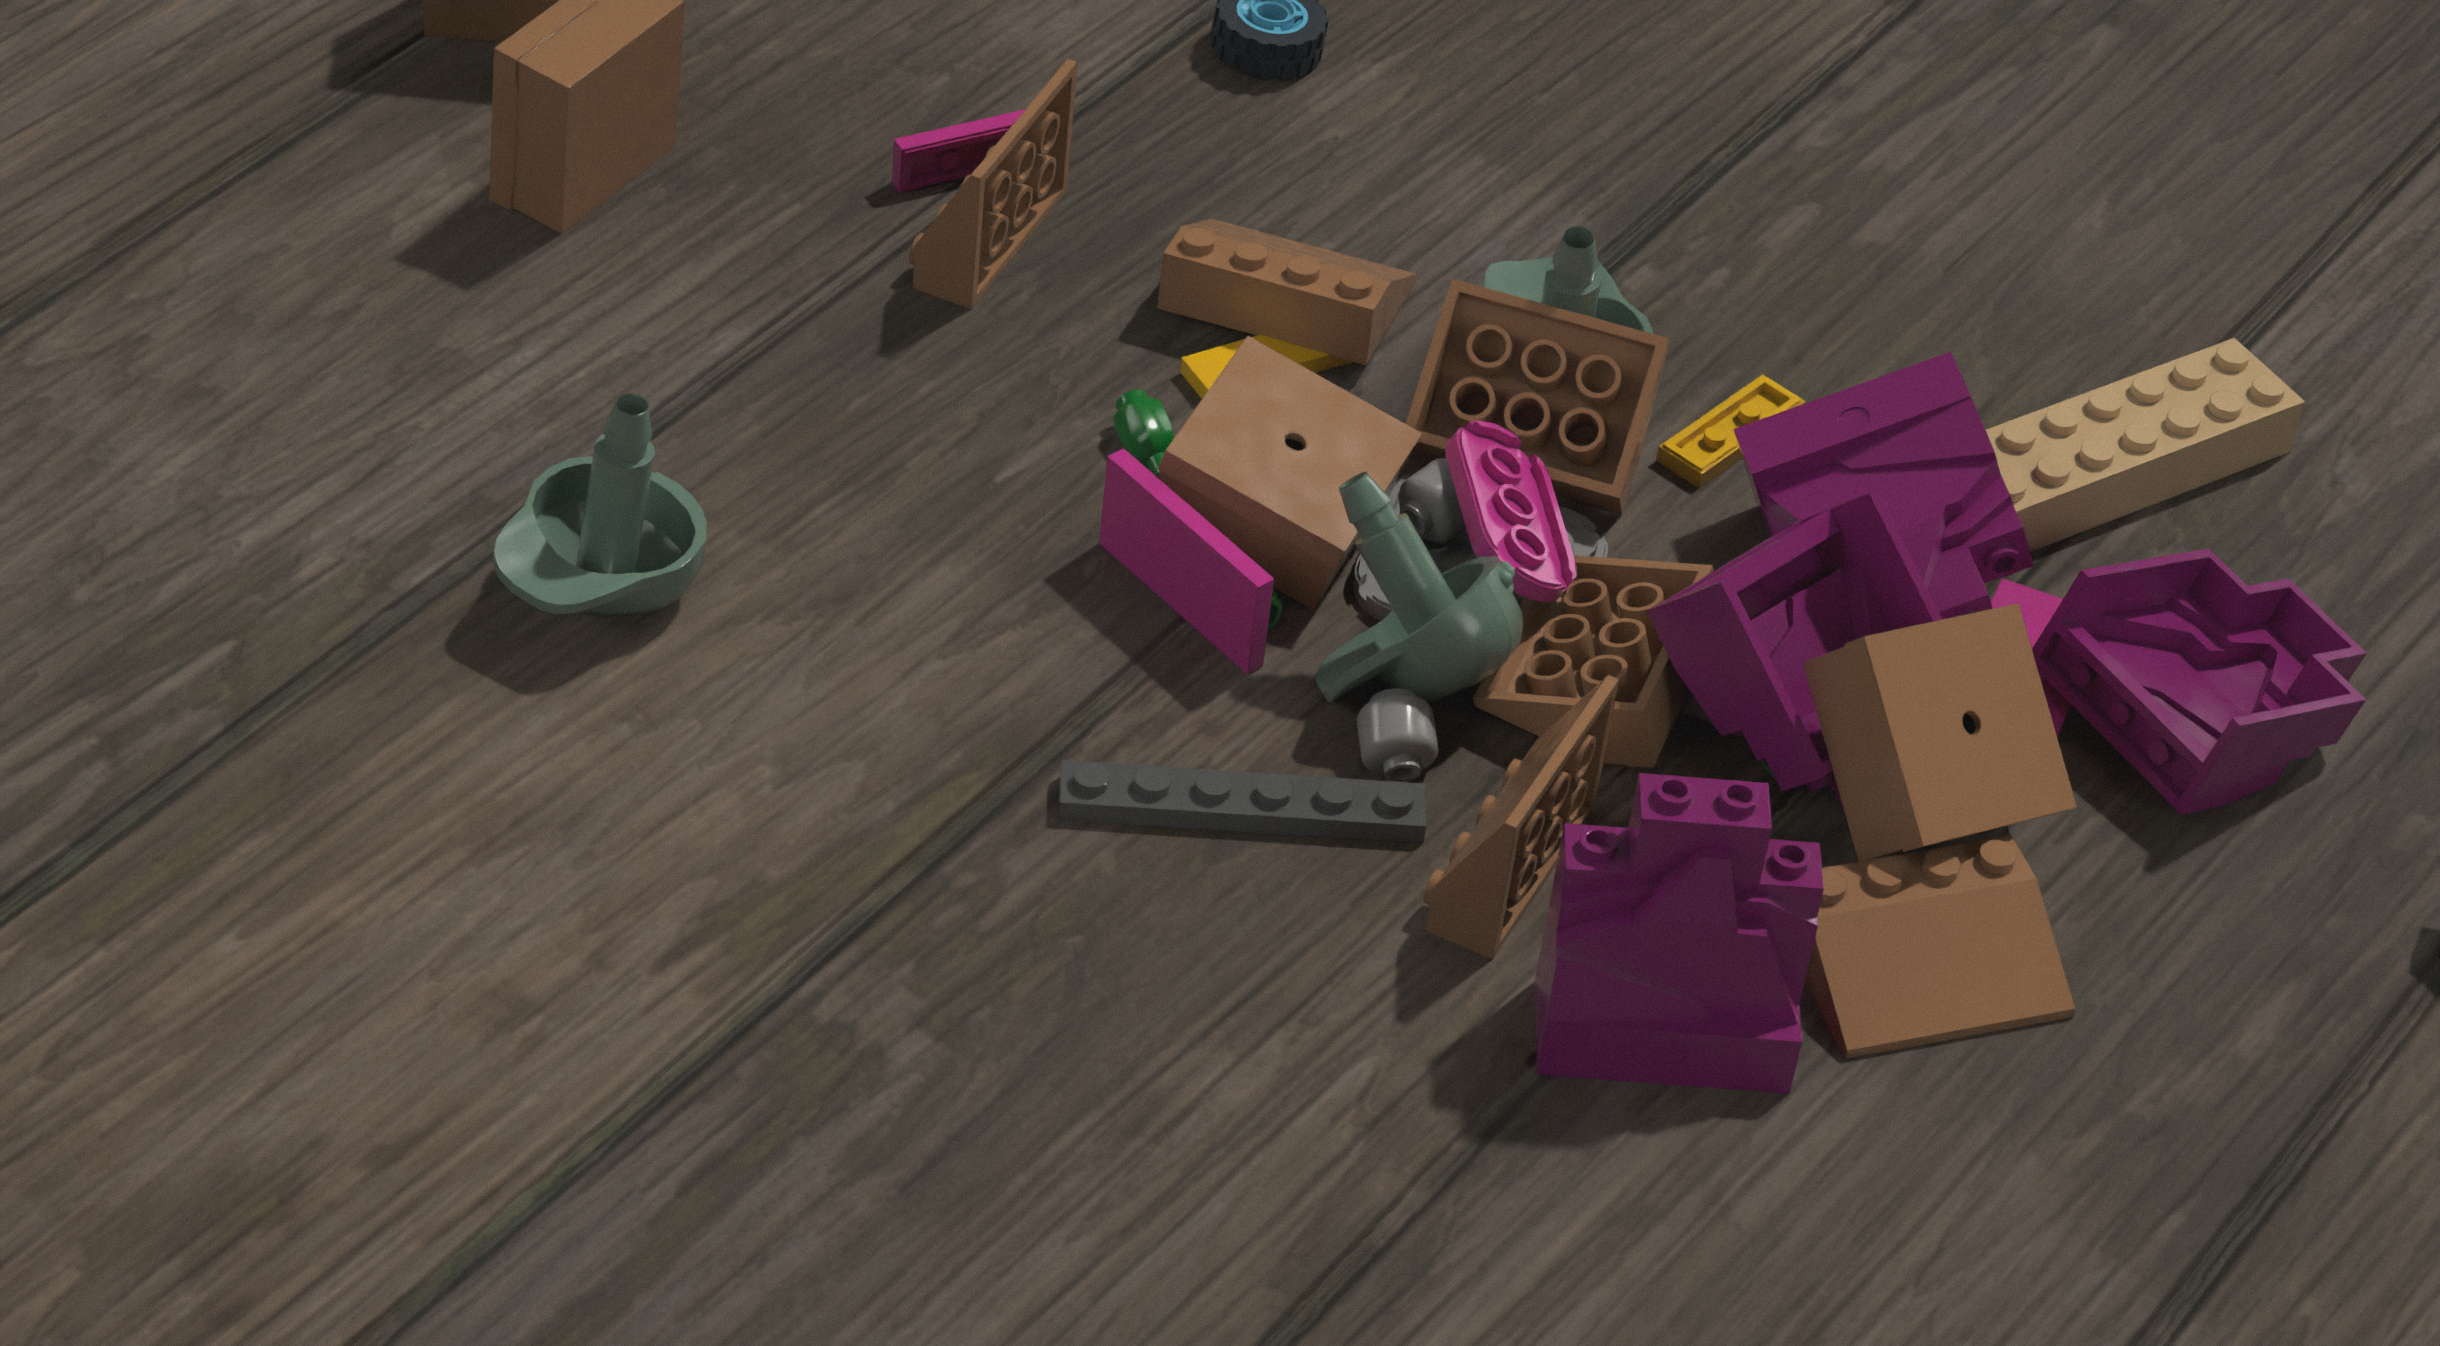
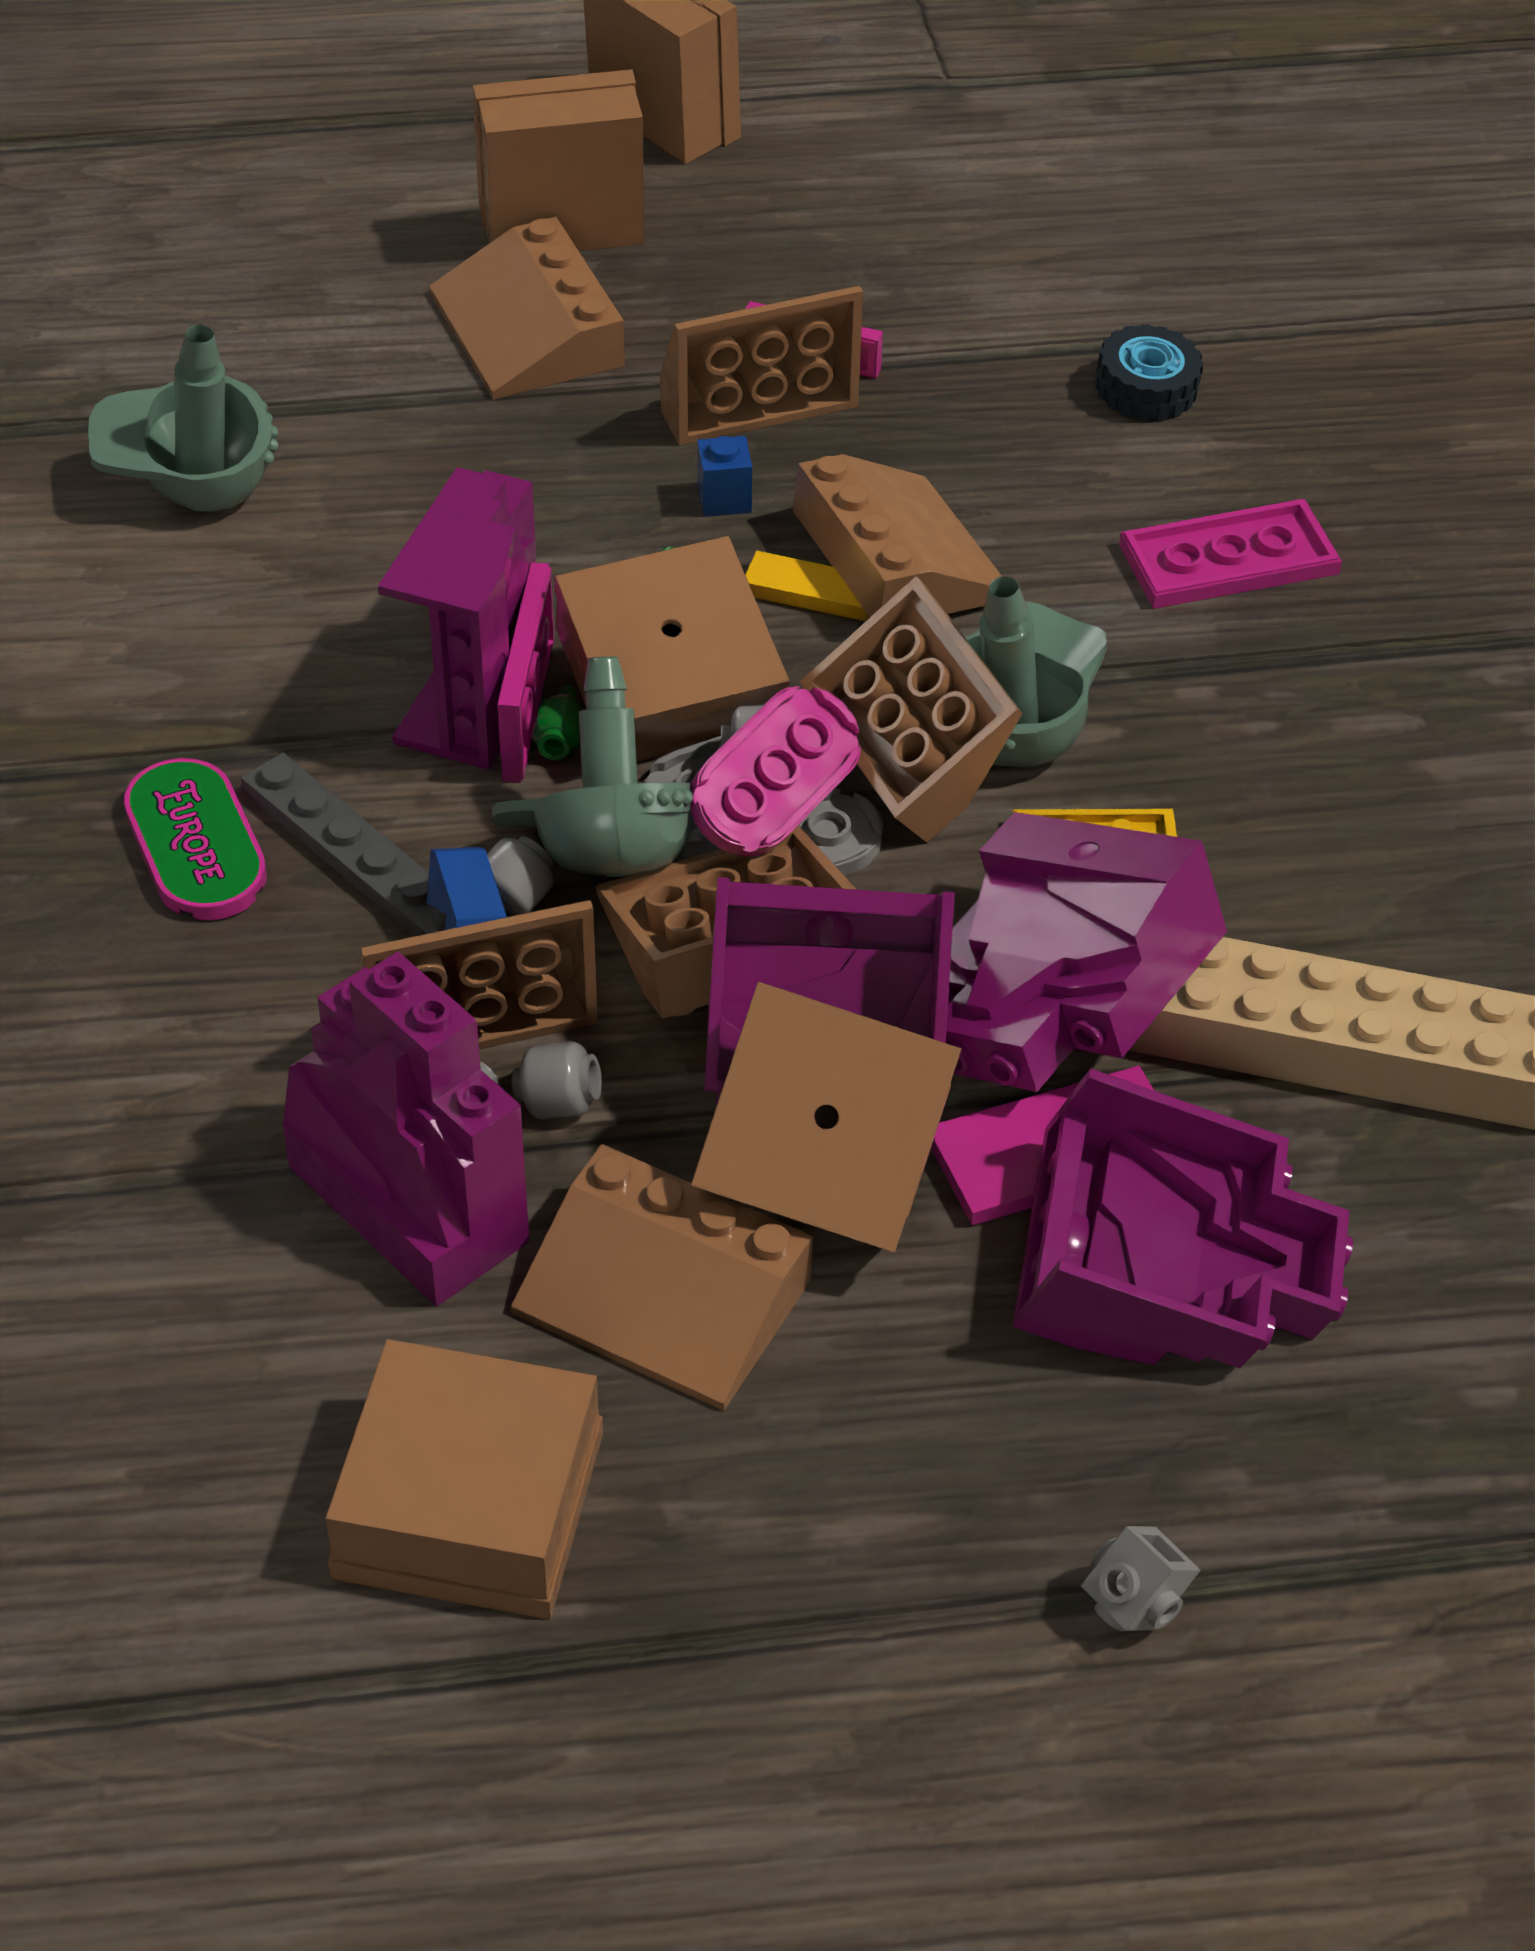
camera: 50 degrees right, 5 degrees up
(691, 256) = (530, 311): none -> medium nougat slope
(1077, 307) = (724, 475): none -> blue brick
(1089, 877) = (195, 838): none -> green tile
(1125, 530) = (471, 572): none -> magenta panel
(1407, 760) = (463, 886): none -> blue slope
(1518, 150) = (1229, 553): none -> dark pink tile
(2022, 1175) = (465, 1479): none -> medium nougat container

